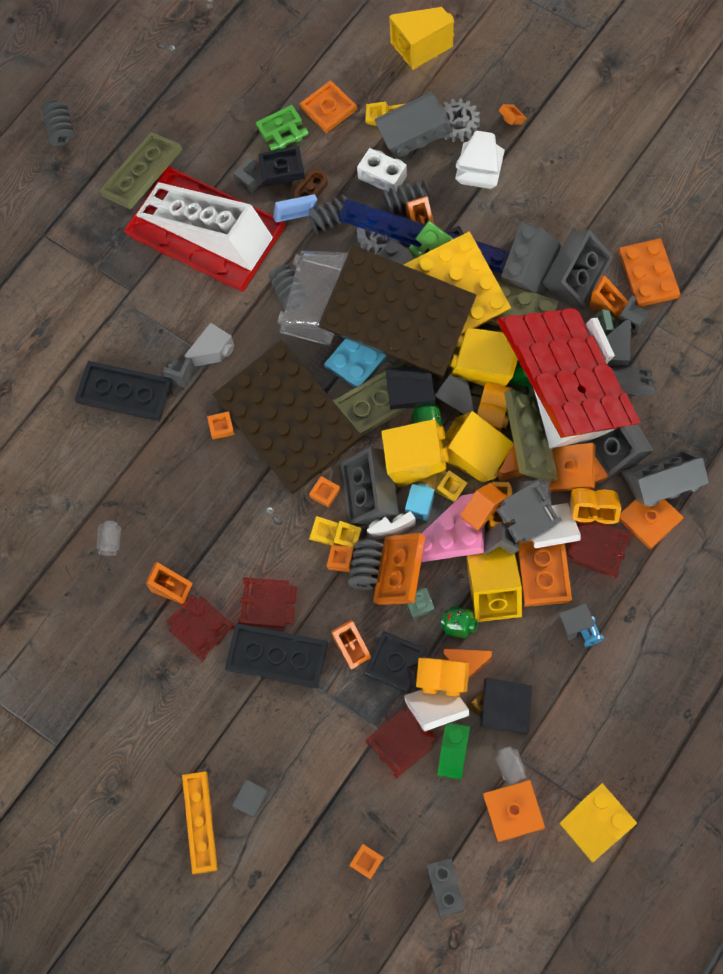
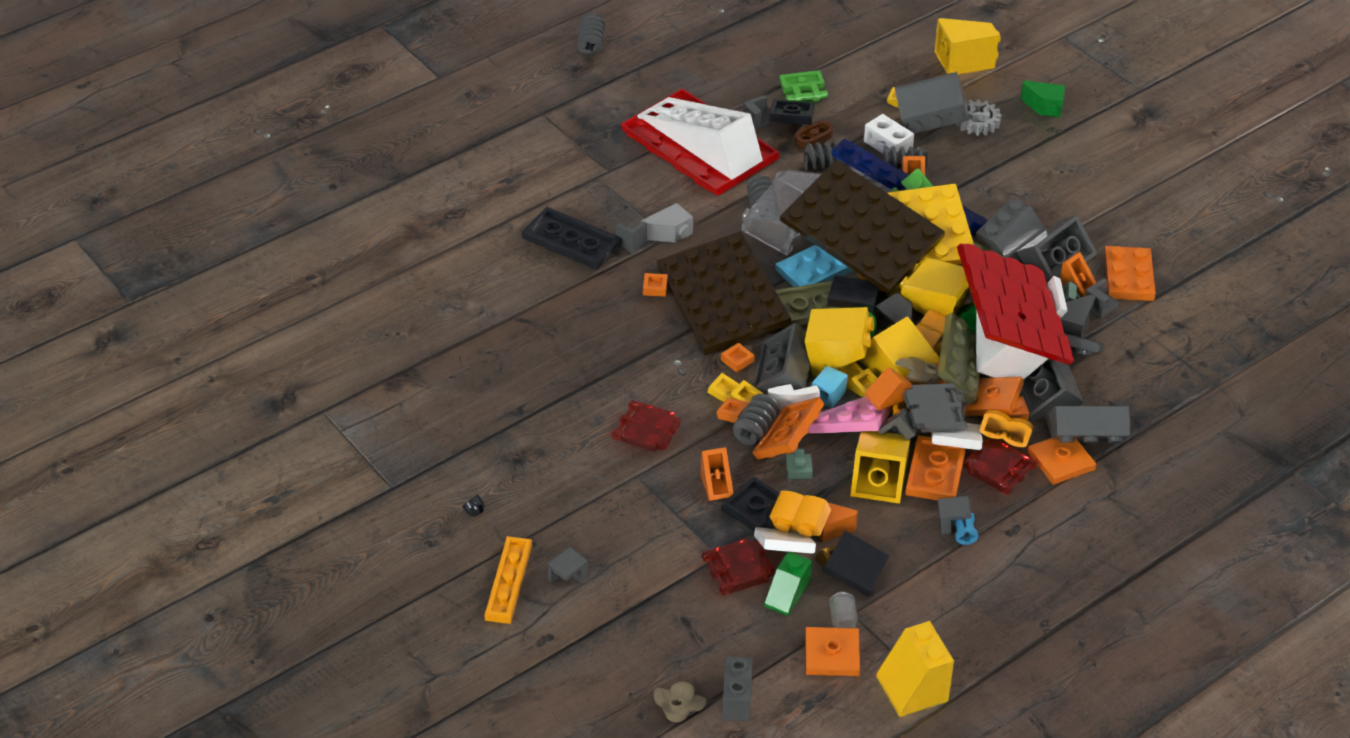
camera: 10 degrees right, 25 degrees down
(108, 538) = (510, 340): clear brick -> none
(139, 747) = (474, 506): none -> black hinge
(140, 170) = (655, 84): olive plate -> none
(168, 583) = (553, 386): orange slope -> none
(198, 625) = (571, 428): clear red plate -> none
(276, 655) = (639, 468): black plate -> none
(294, 208) = (790, 141): light blue tile -> none
(328, 106) = (855, 81): orange plate -> none
(366, 861) = (664, 650): orange plate -> none
(396, 909) = (679, 701): none -> dark tan plate
(459, 622) = (833, 486): green head -> none
(480, 161) = (988, 149): white piece -> none
(501, 468) = (919, 370): none -> dark tan plate
(512, 76) = (1043, 97): none -> green slope
(512, 115) = (1033, 125): orange plate -> none

